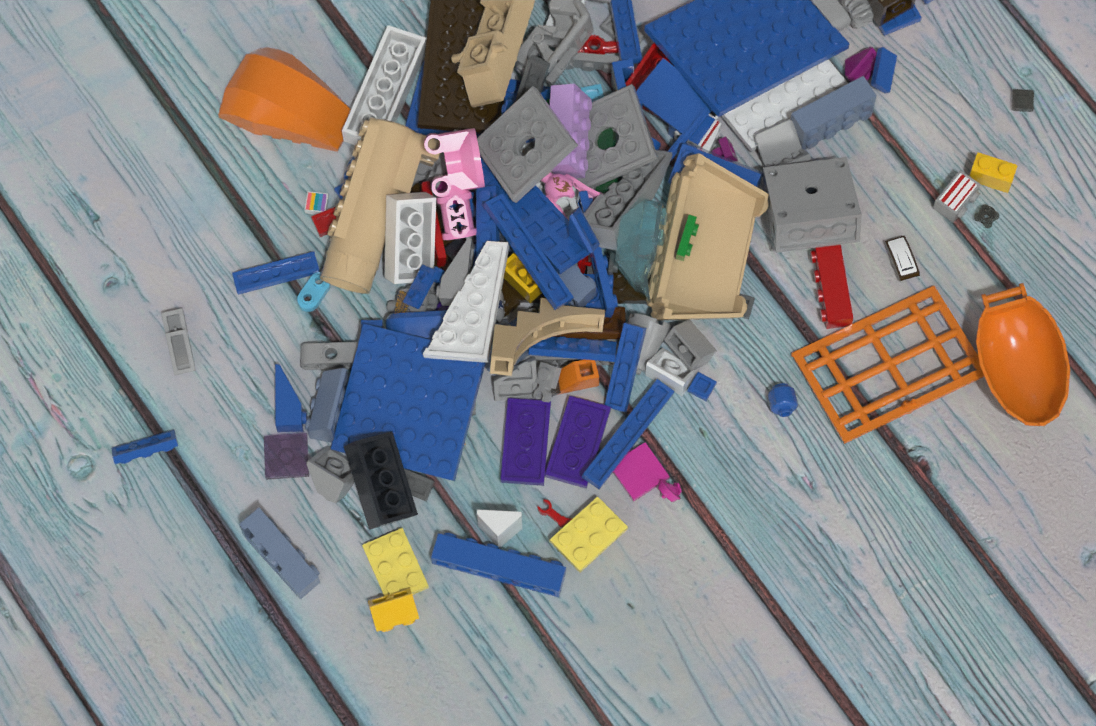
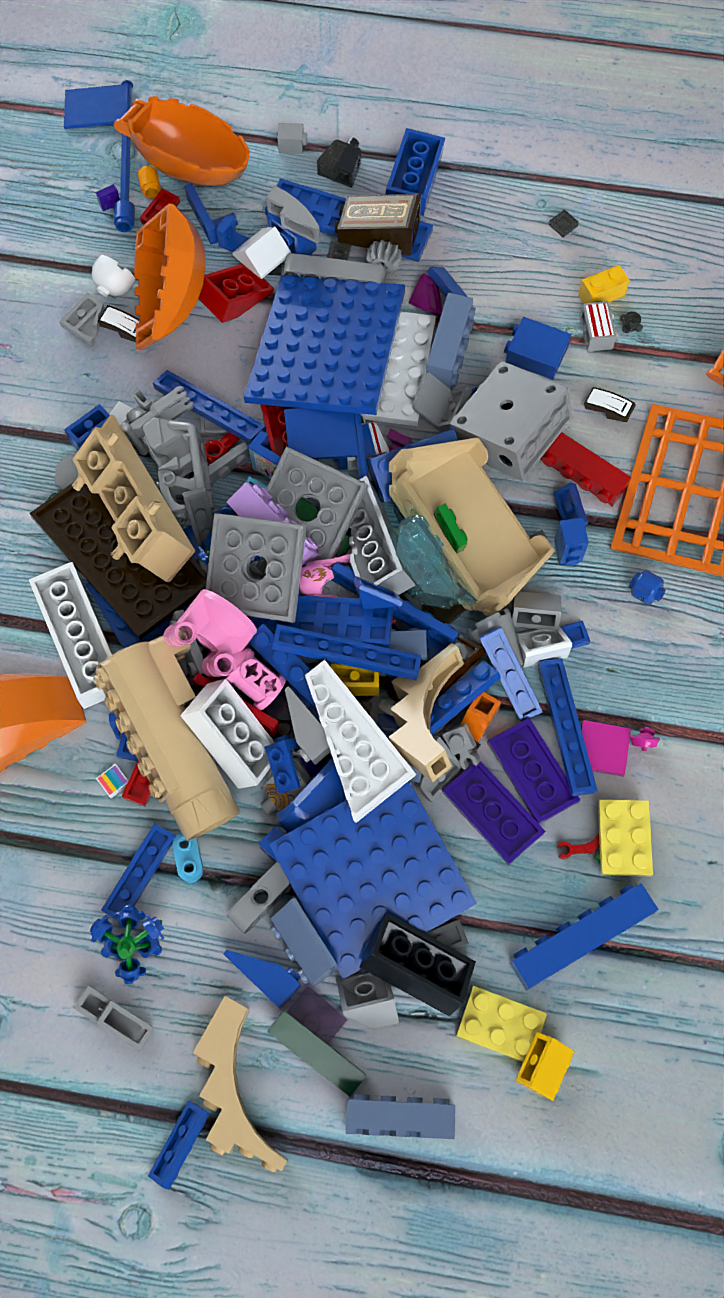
camera: 45 degrees left, 0 degrees up
(217, 418) = (221, 1091): none -> tan arch
(222, 304) = (124, 945): none -> blue plant
(271, 472) = (317, 1053): none -> tile
(499, 525) = (555, 904): white slope -> none
(762, 322) = (571, 541): none -> blue brick
(792, 301) = (569, 503): none -> blue plate
(895, 173) = (537, 347): none -> blue brick

